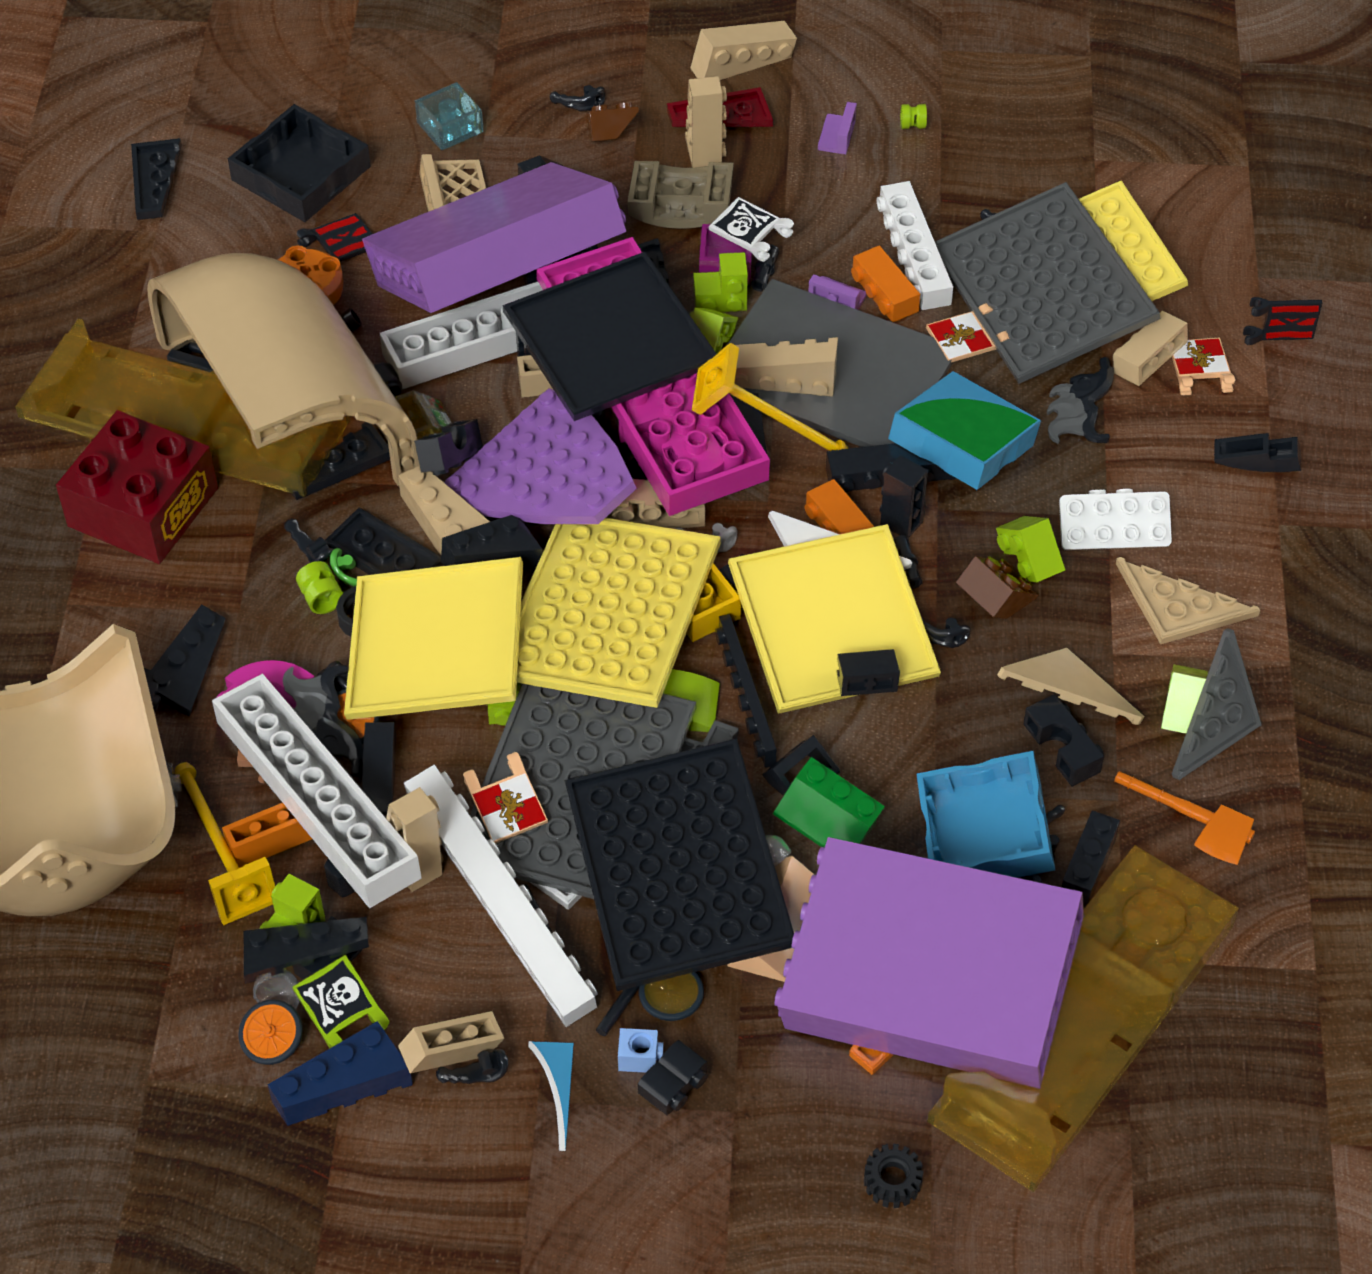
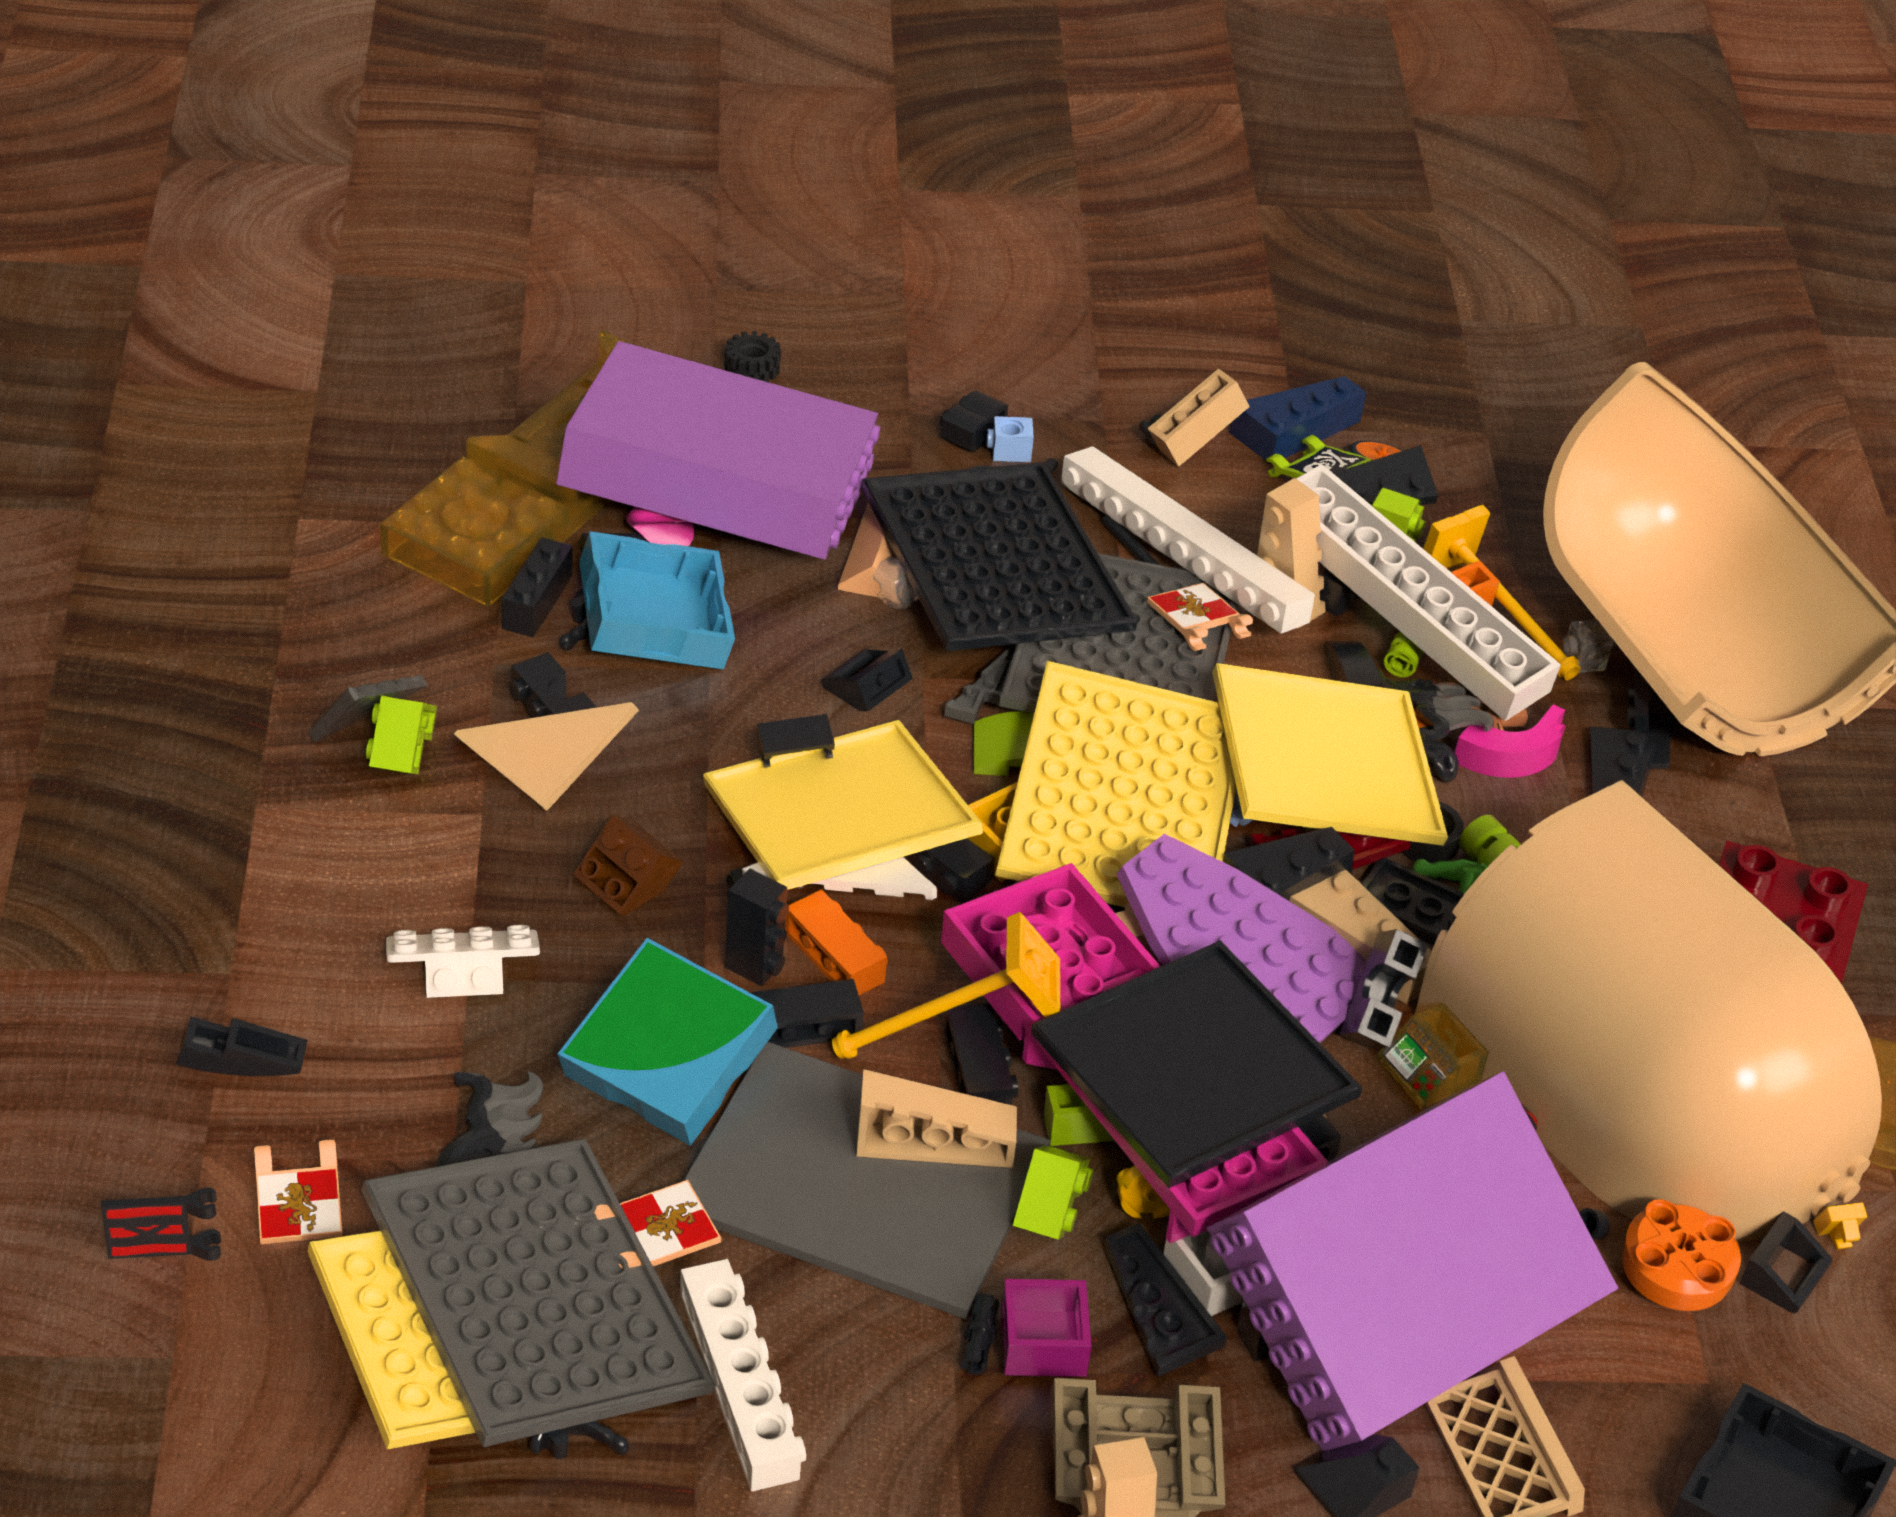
camera: 170 degrees right, 10 degrees down
(338, 238) = (1658, 1373): black flag -> none
(557, 1063) = (1084, 433): dark azure sticker -> none
(723, 289) = (1032, 1256): lime brick -> none
(748, 225) = (1015, 1339): flag -> none
(748, 698) = (934, 735): black plate -> none
(827, 806) = (829, 626): green slope -> none
(837, 291) = (862, 1291): medium lavender panel -> none
(885, 284) = (788, 1301): orange brick -> none
(952, 636) = (688, 812): black piece -> none
(1033, 545) = (587, 901): lime brick -> none
(1150, 348) = (346, 1209): tan brick -> none
(1178, 606) = (388, 862): tan tile -> none
(1224, 831) = (379, 625): orange piece -> none

